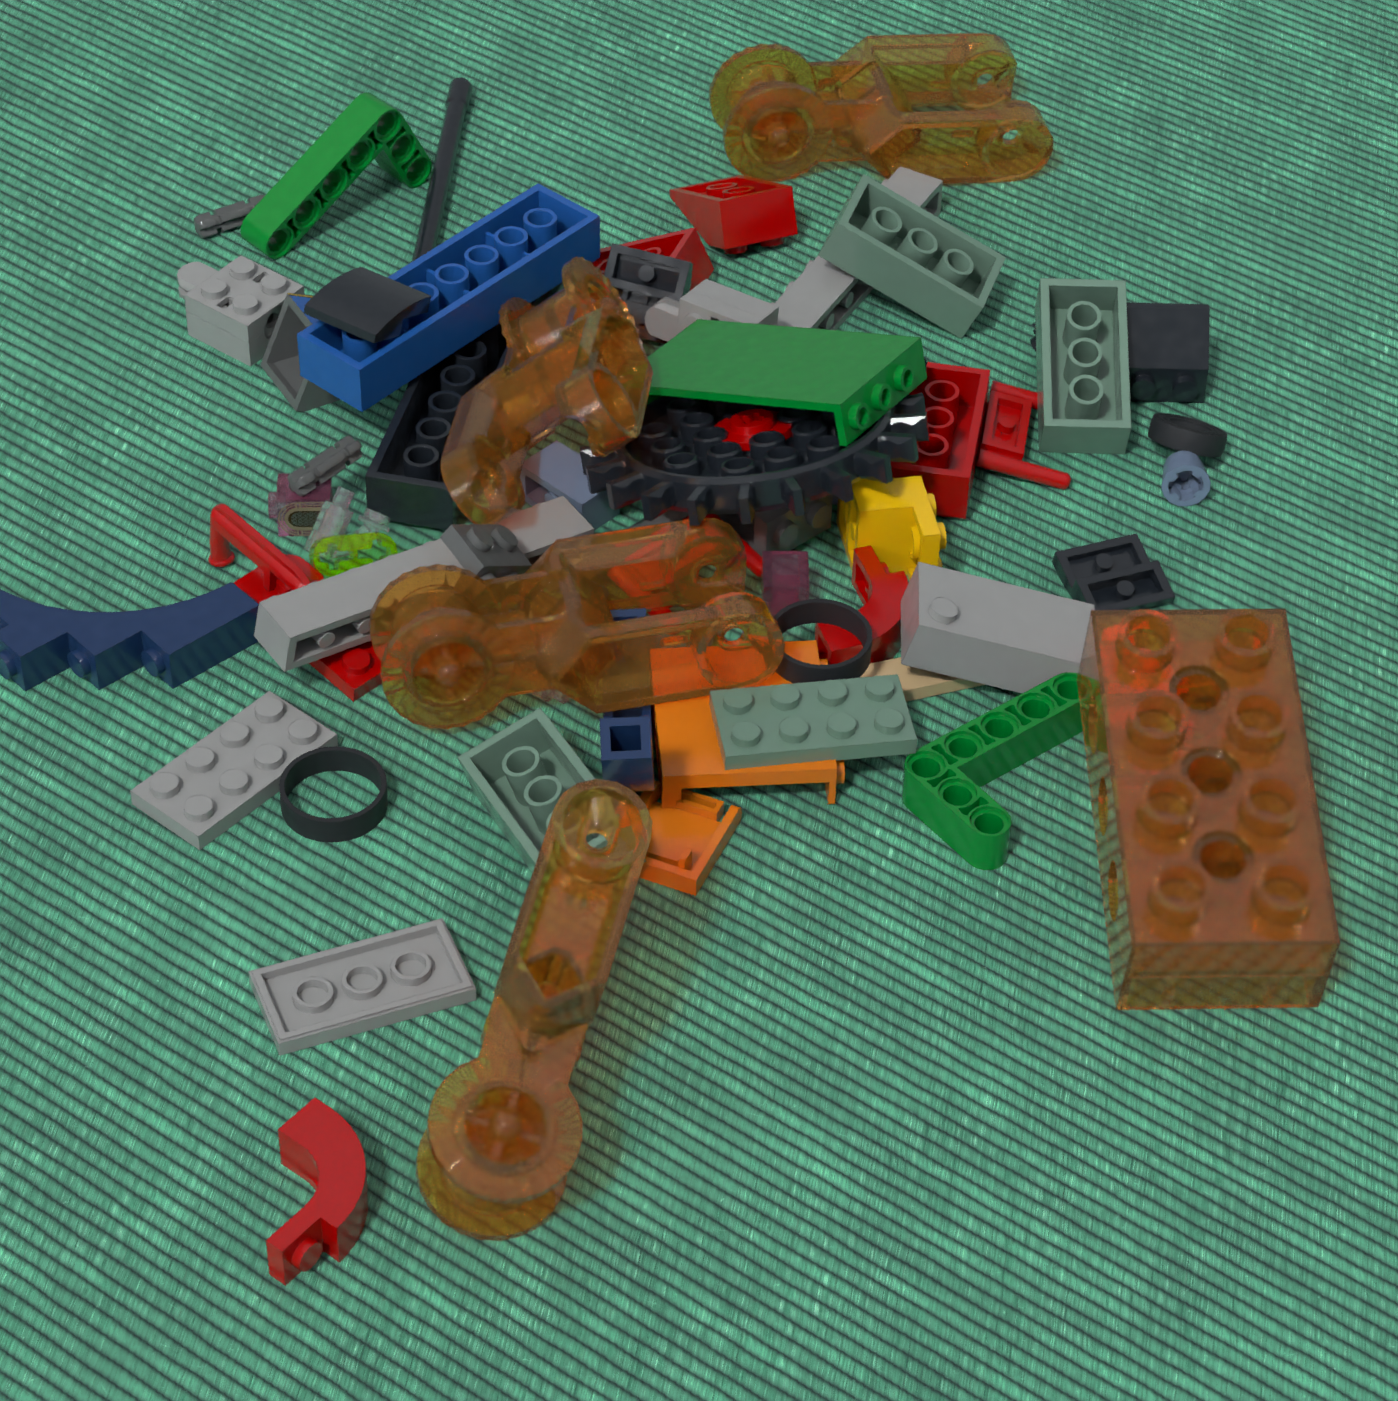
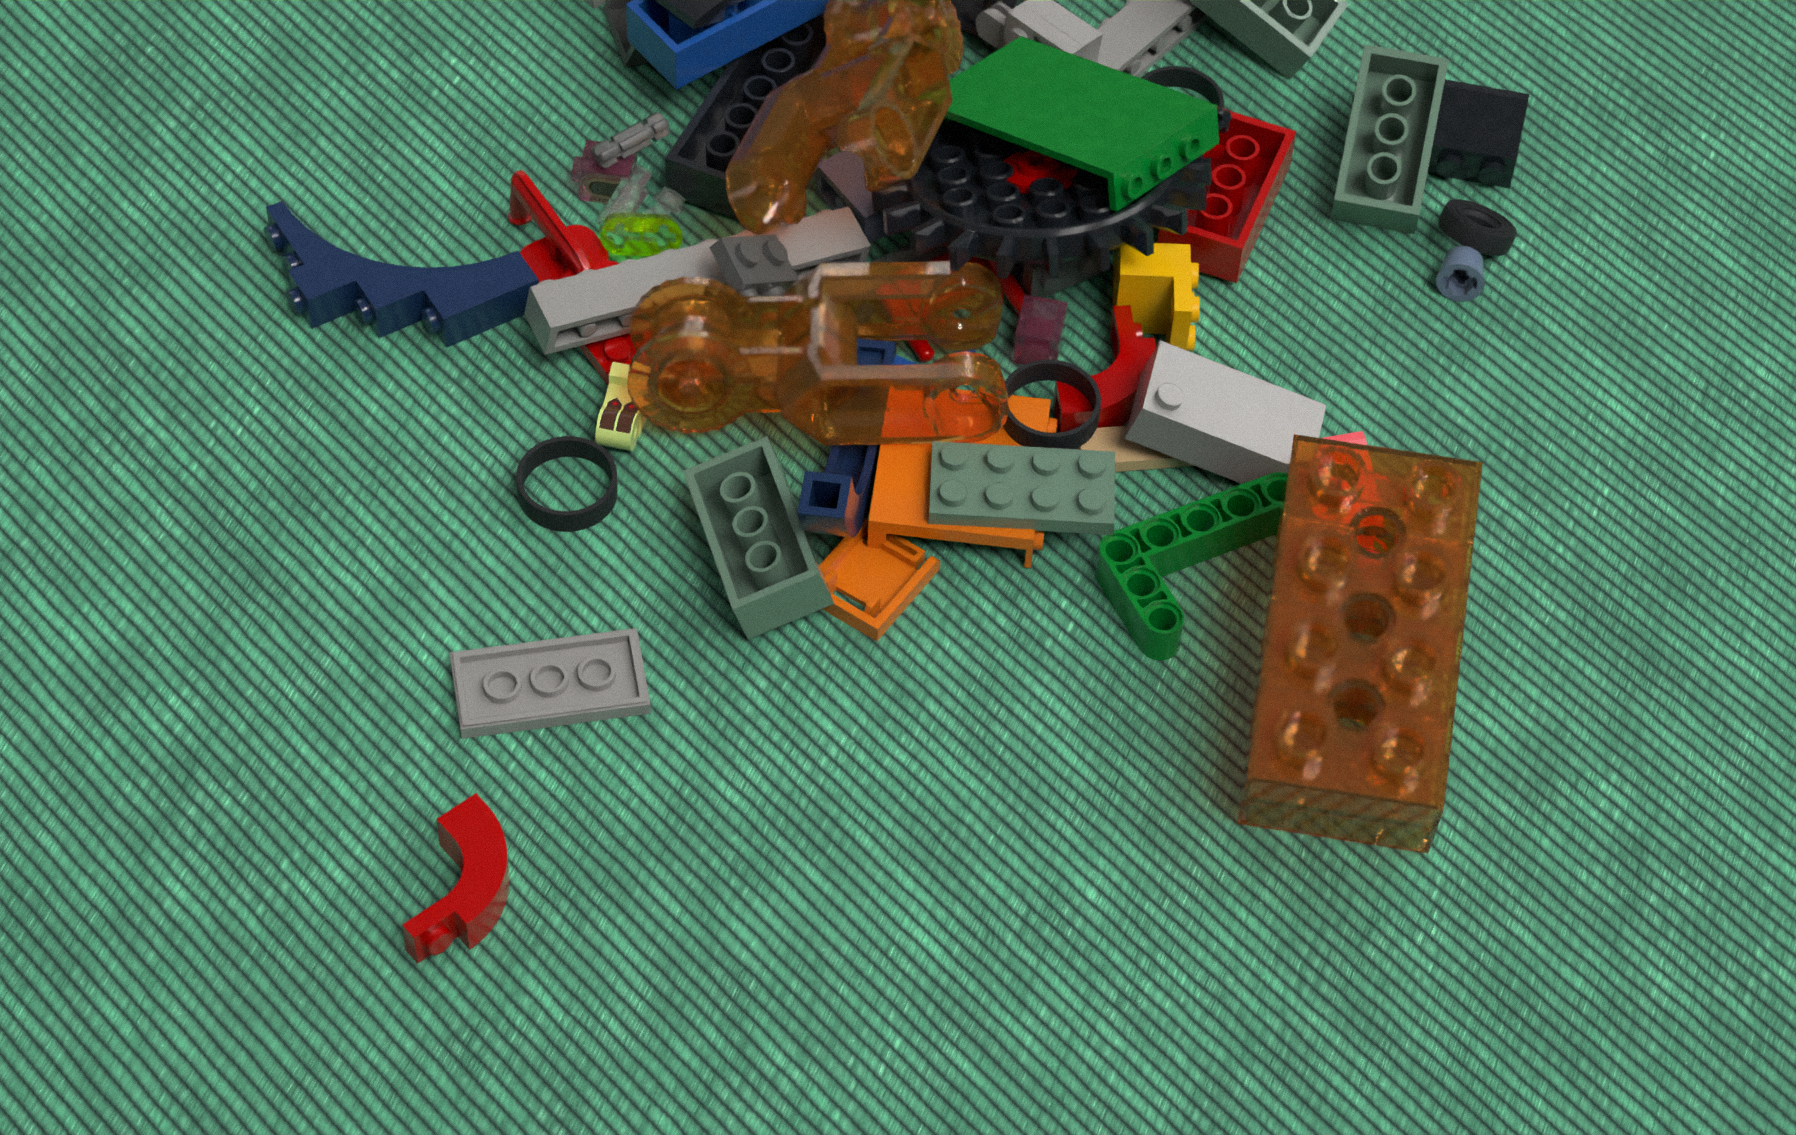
camera: 10 degrees right, 10 degrees up
(230, 770) = (480, 442): light grey plate -> none
(374, 718) = (618, 420): none -> yellowish green leg
(507, 1121) = (632, 854): clear orange arm -> none
(1006, 433) = (1299, 198): red plate -> none
(1113, 575) = (1361, 370): black slope -> none

